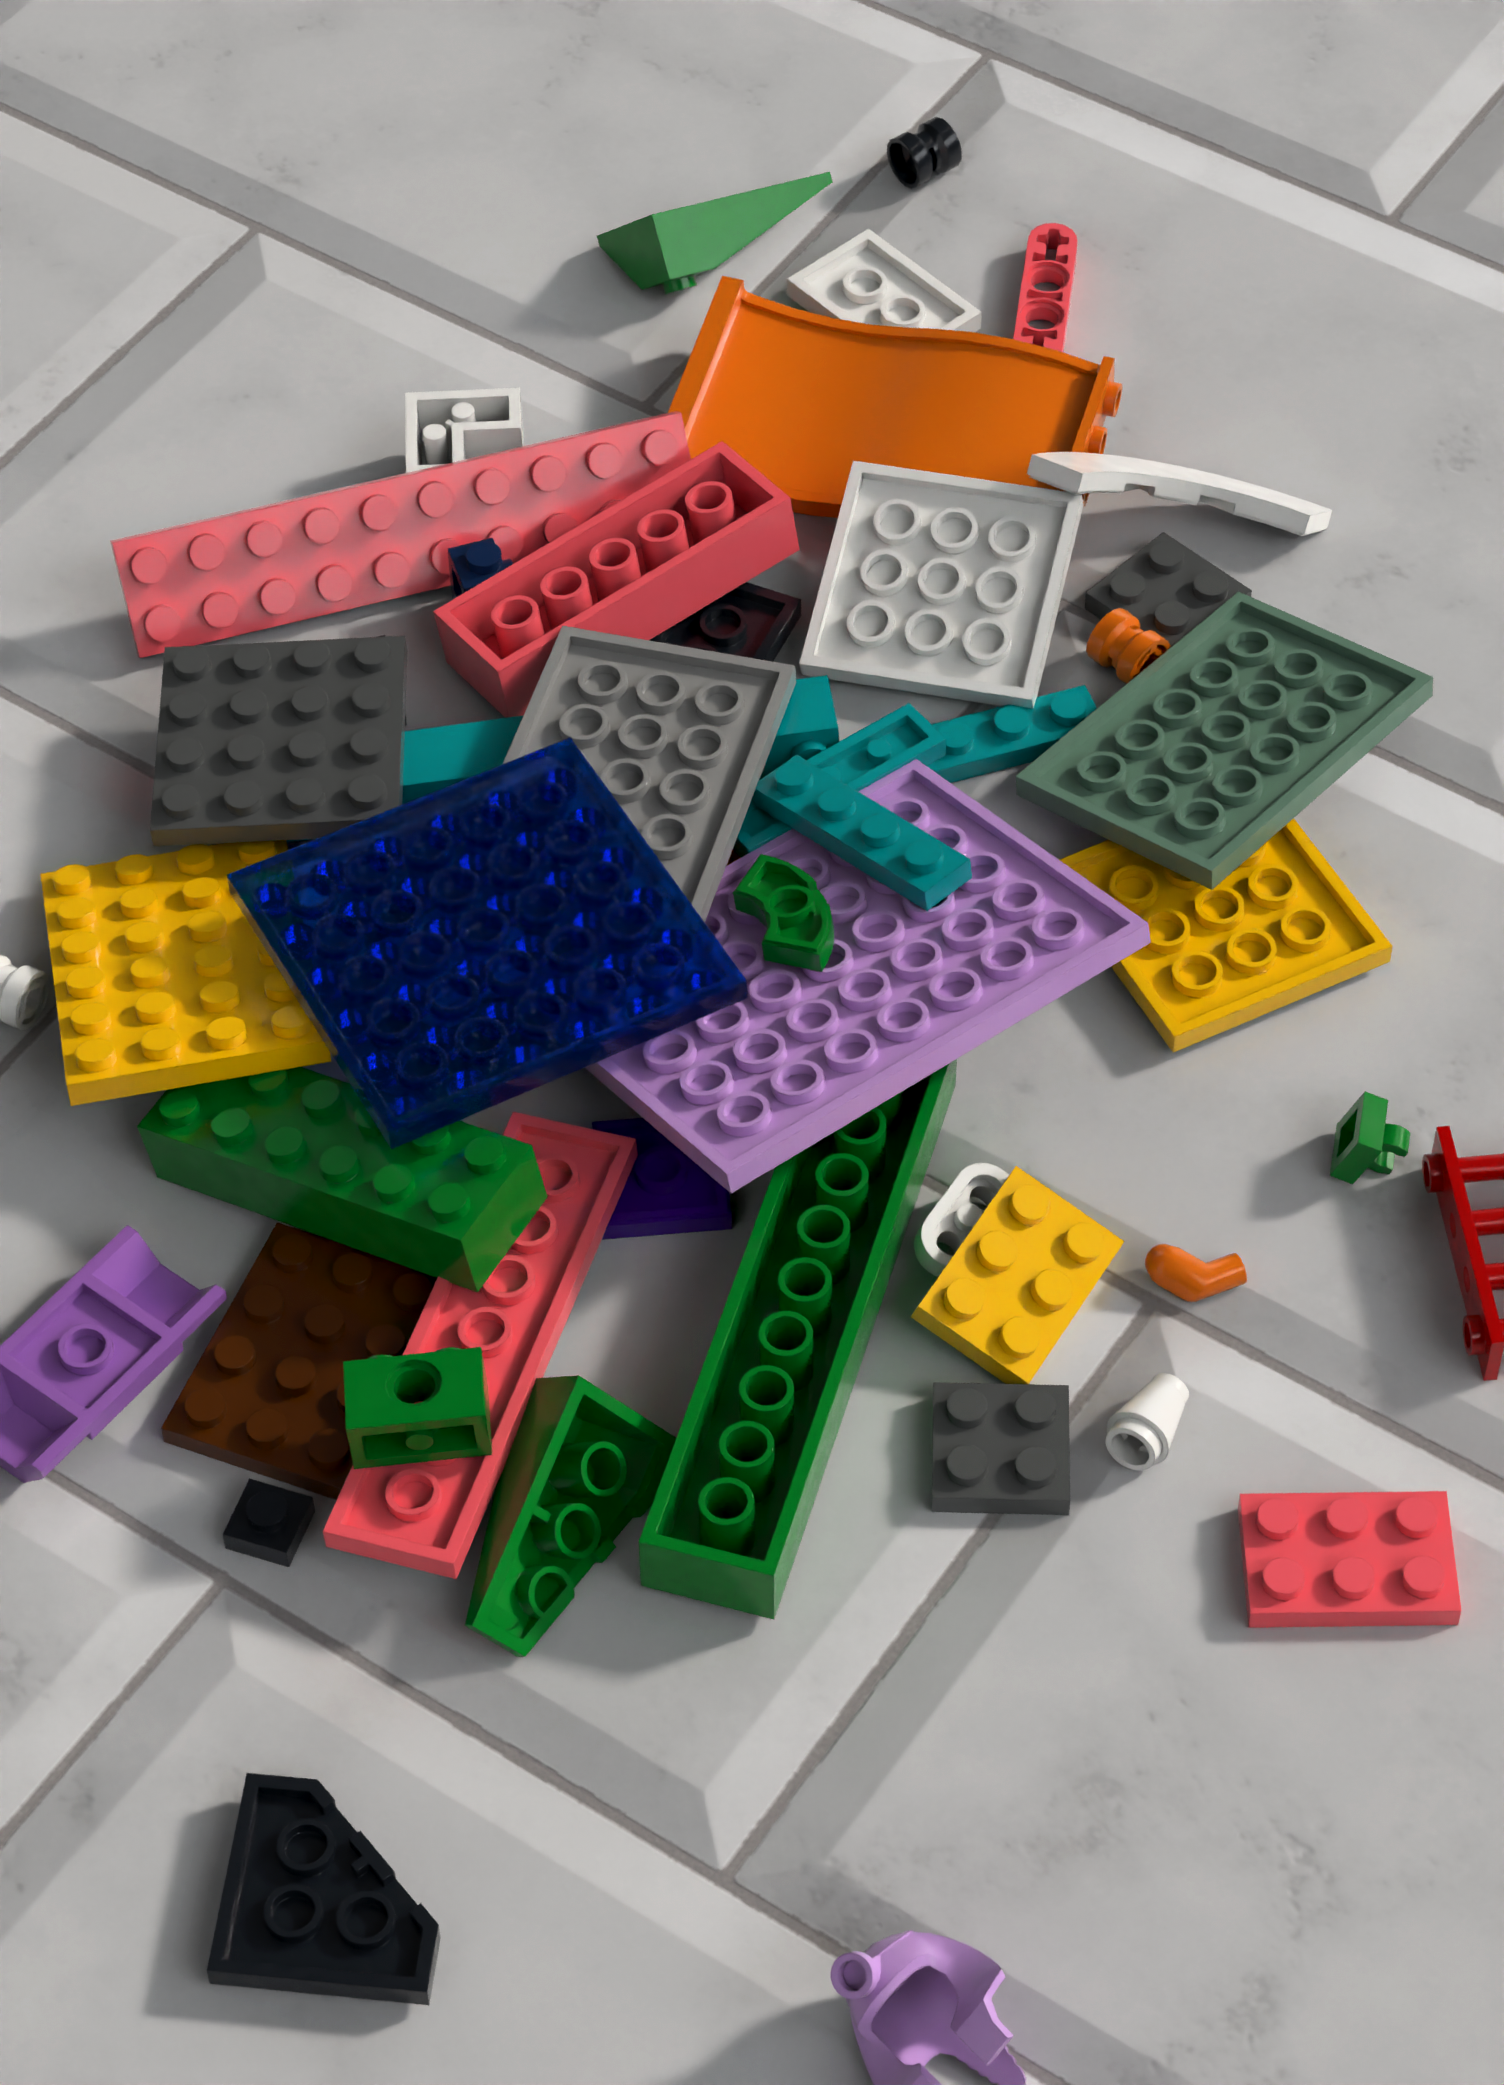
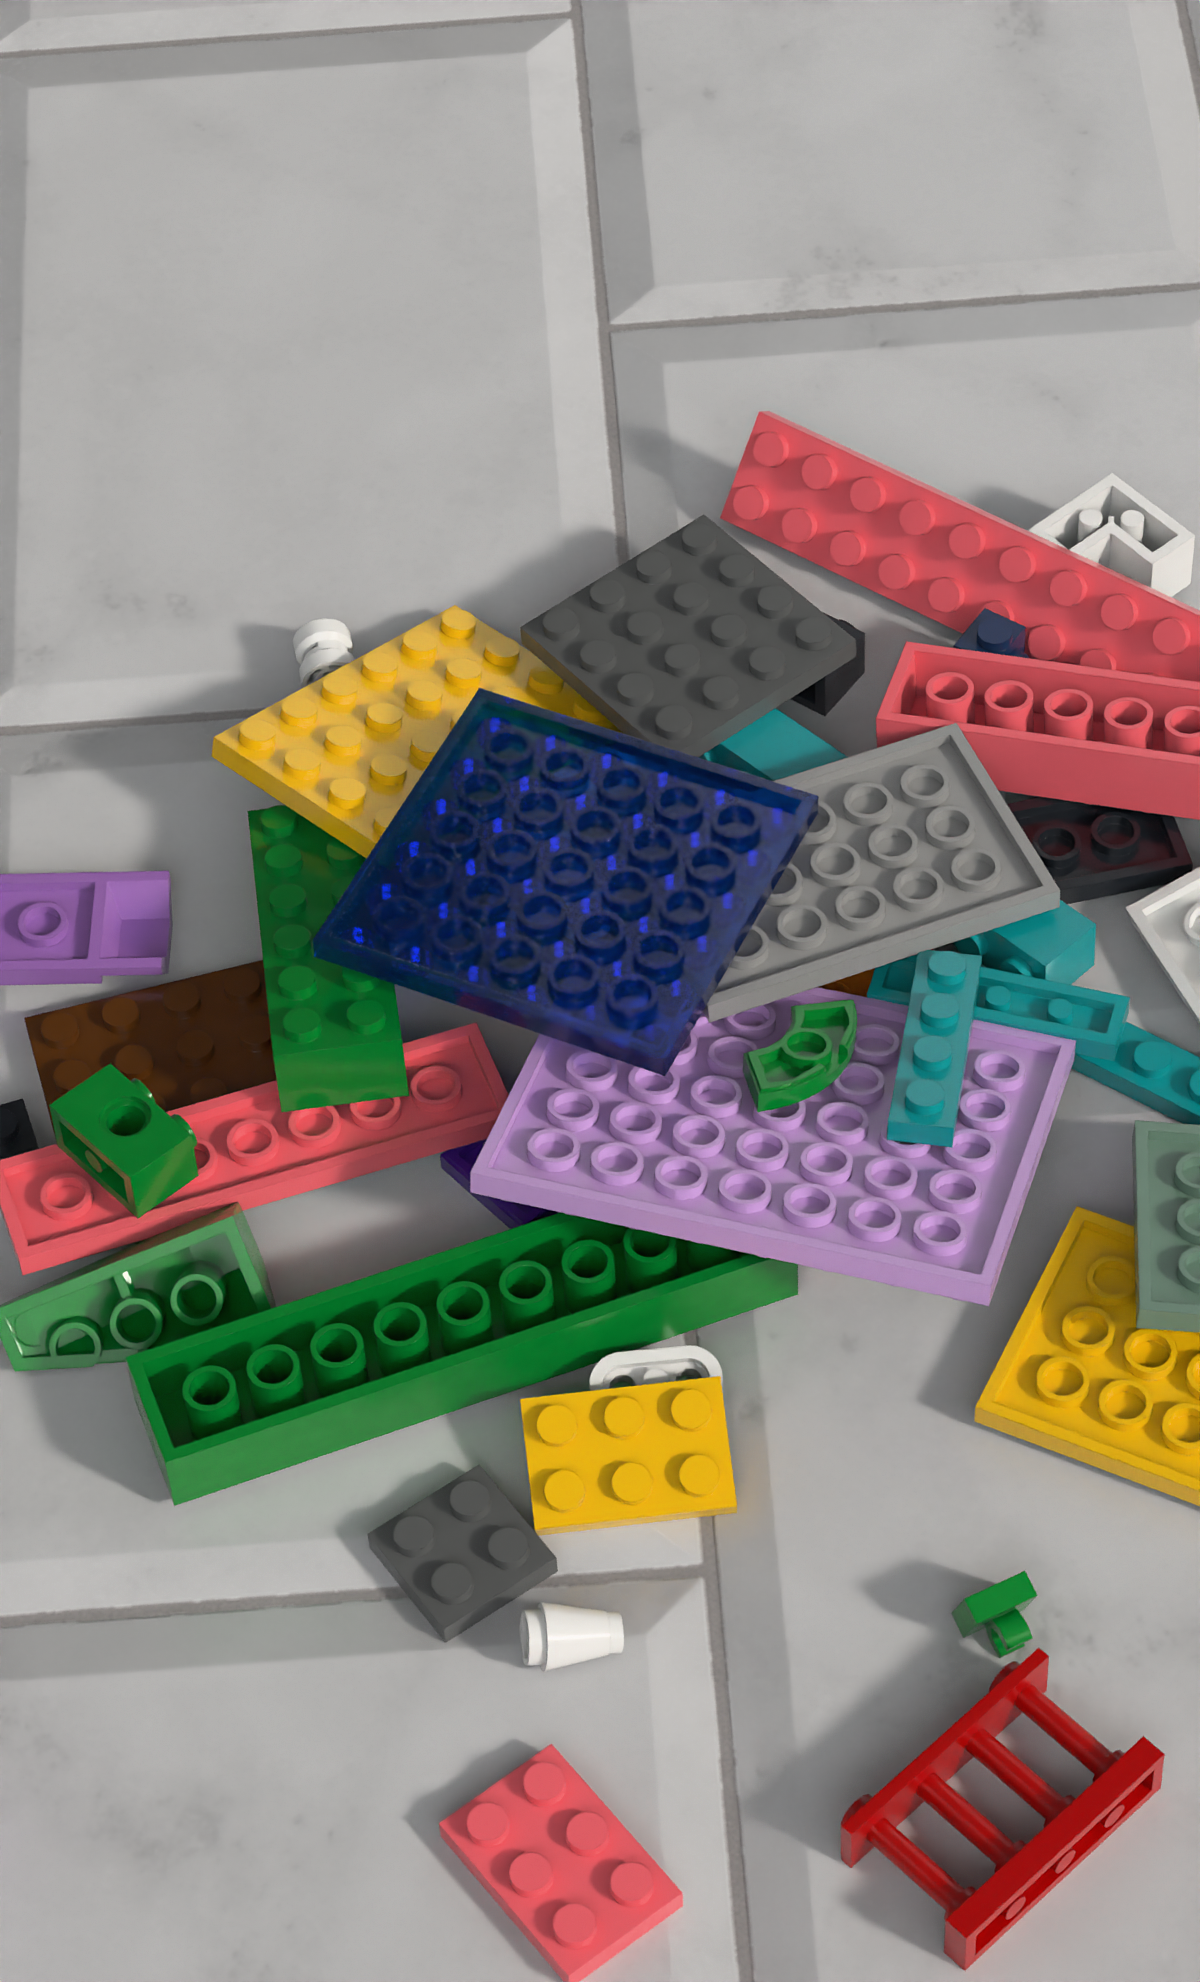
camera: 55 degrees right, 0 degrees up
(1189, 1276) = (745, 1576): orange arm -> none

